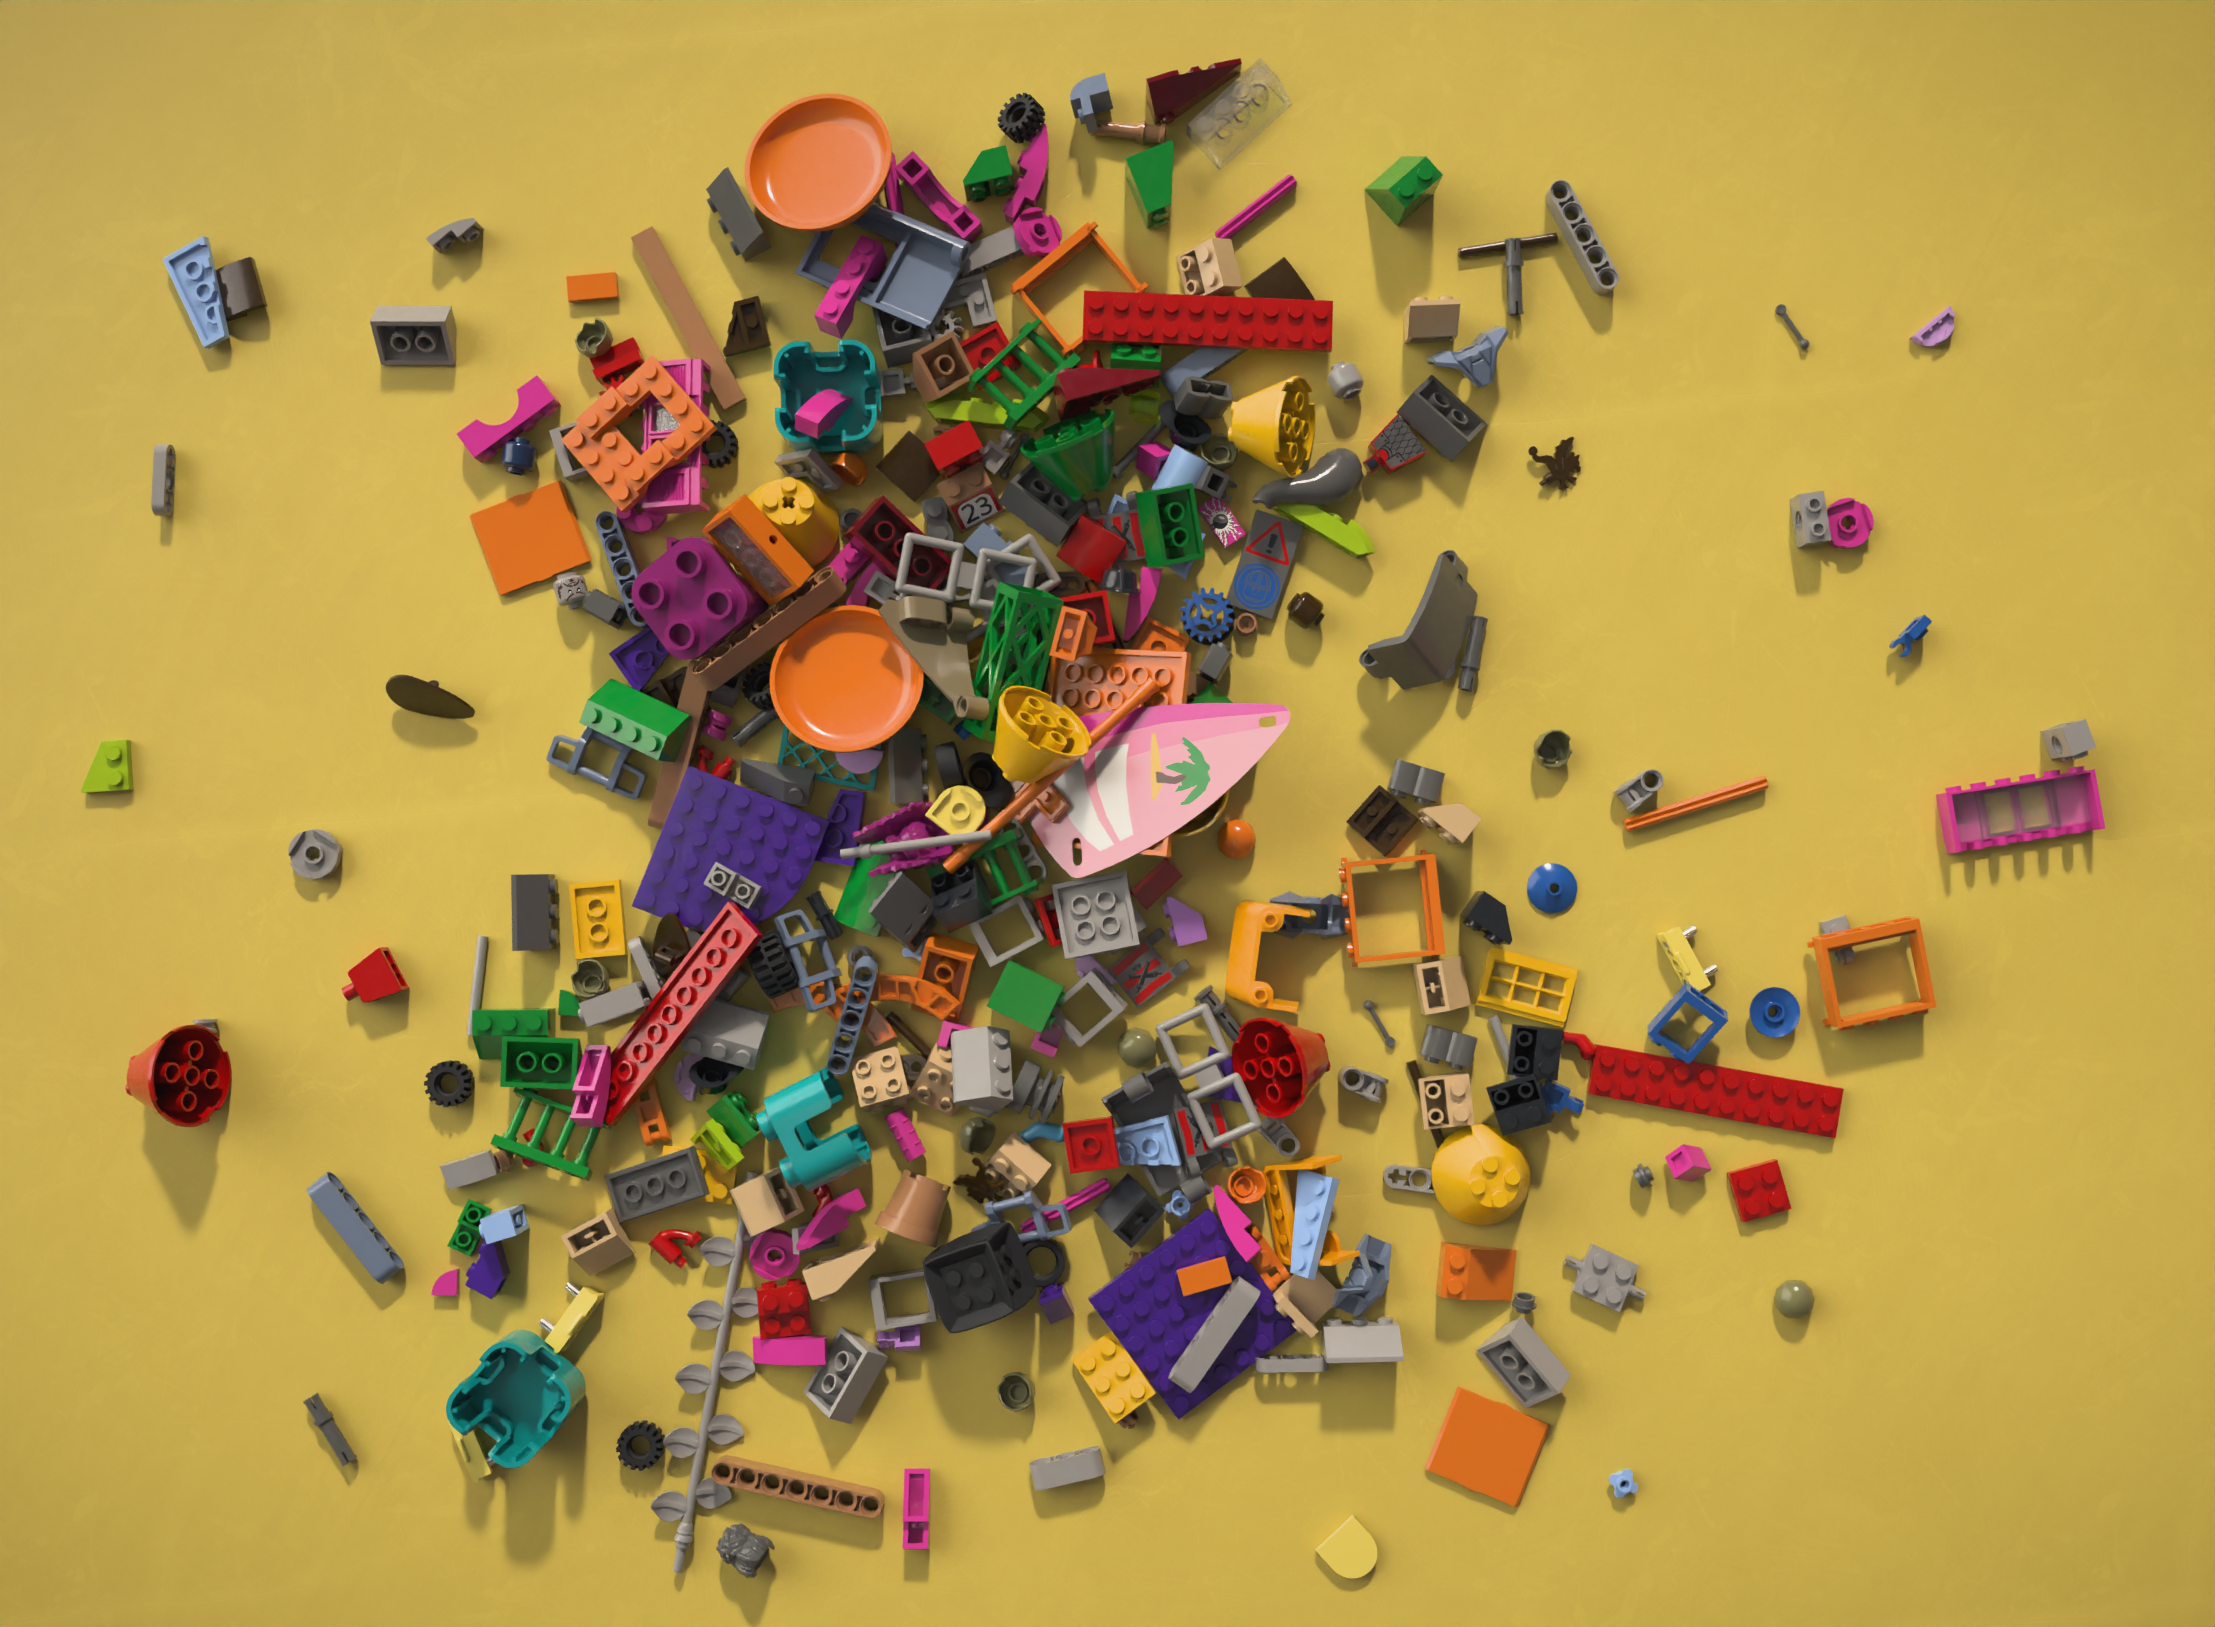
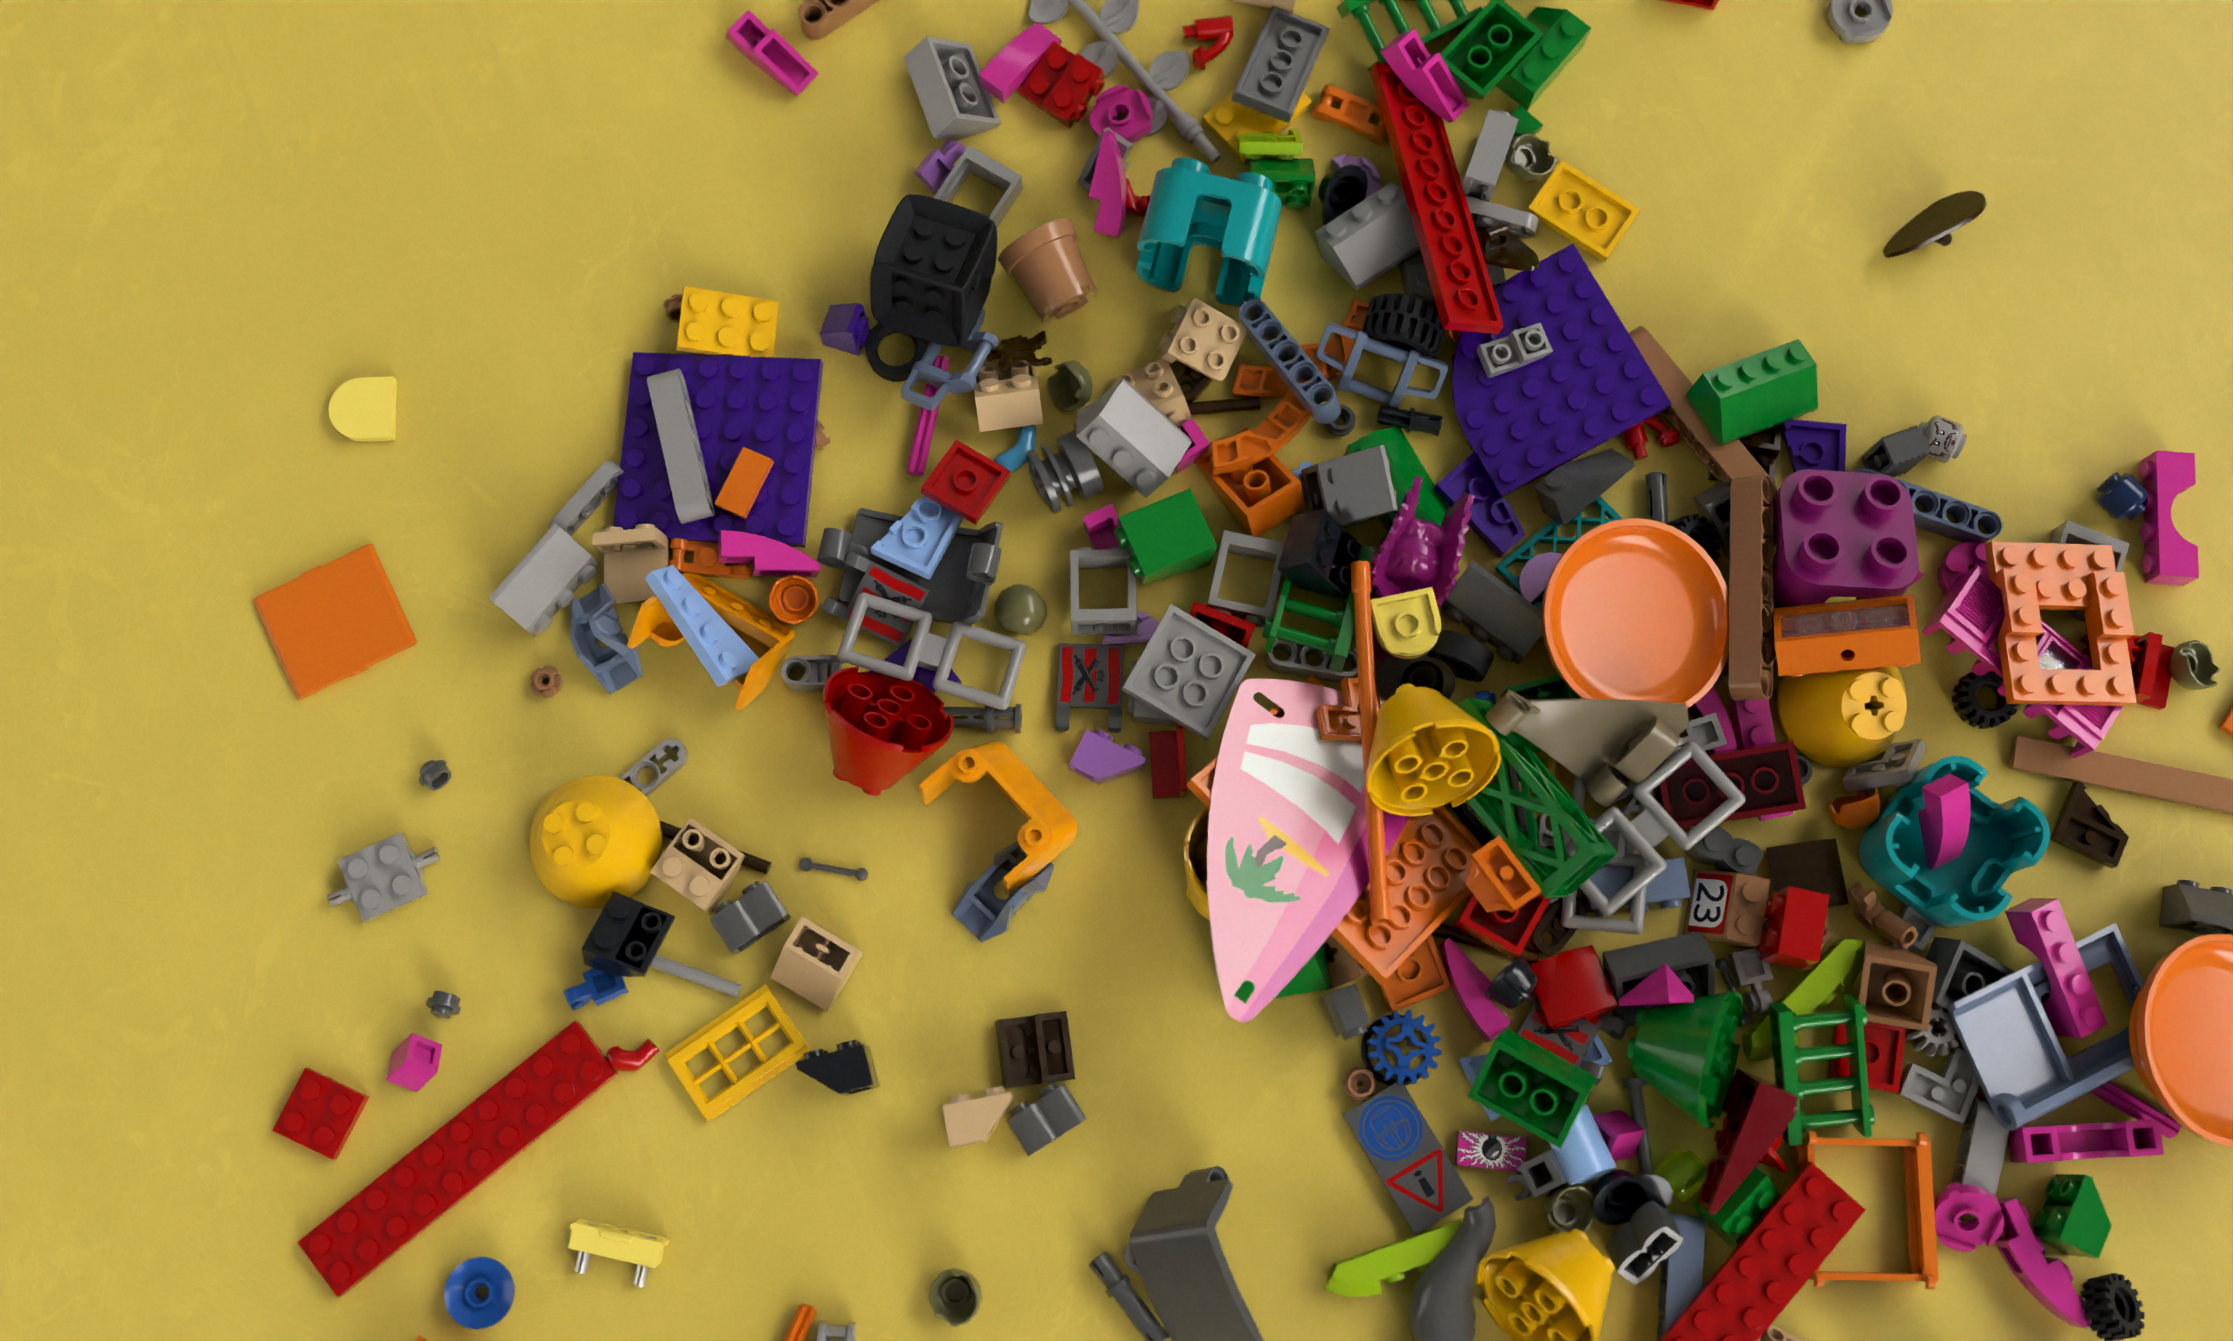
camera: 125 degrees right, 10 degrees down
(477, 979) = (1620, 68): light grey bar -> none
(530, 538) = (2024, 446): orange piece -> none
(534, 912) = (1641, 154): dark grey slope -> none
(575, 767) = (1720, 345): sand blue bar -> none
(718, 719) = (1687, 469): dark pink wheel -> none
(766, 1201) = (1177, 135): tan slope -> none
(829, 1273) = (1060, 147): tan slope -> none
(867, 850) = (1442, 501): light grey bar -> none
(904, 406) = (1874, 916): none -> medium nougat bar
(905, 1134) = (1130, 323): dark pink axle -> none
(1016, 1391) = (796, 227): olive hair -> none
(1057, 497) = (1658, 989): none -> dark pink slope
(1067, 1468) = (683, 215): light grey beam -> none
(1129, 1210) = (869, 469): black slope -> none
(1173, 1206) = (833, 514): light blue plate -> none
(1236, 838) = (1144, 883): orange hair -> none
(1305, 610) = (1323, 1158): dark brown head -> none
(1366, 1085) = (788, 801): light grey piece -> none
(1416, 1281) = (546, 690): none -> medium nougat plate
(1431, 906) = (907, 1022): orange window -> none
(1475, 1272) = (506, 752): orange slope -> none
(1524, 1363) = (377, 724): light grey slope -> none
(1534, 1051) = (666, 999): black slope -> none
(1539, 888) = (830, 1175): blue dish -> none
(1620, 1476) = (183, 727): light blue plate -> none
(1702, 1004) = (557, 1216): blue window -> none
(1794, 1299) = (183, 1052): olive hair -> none

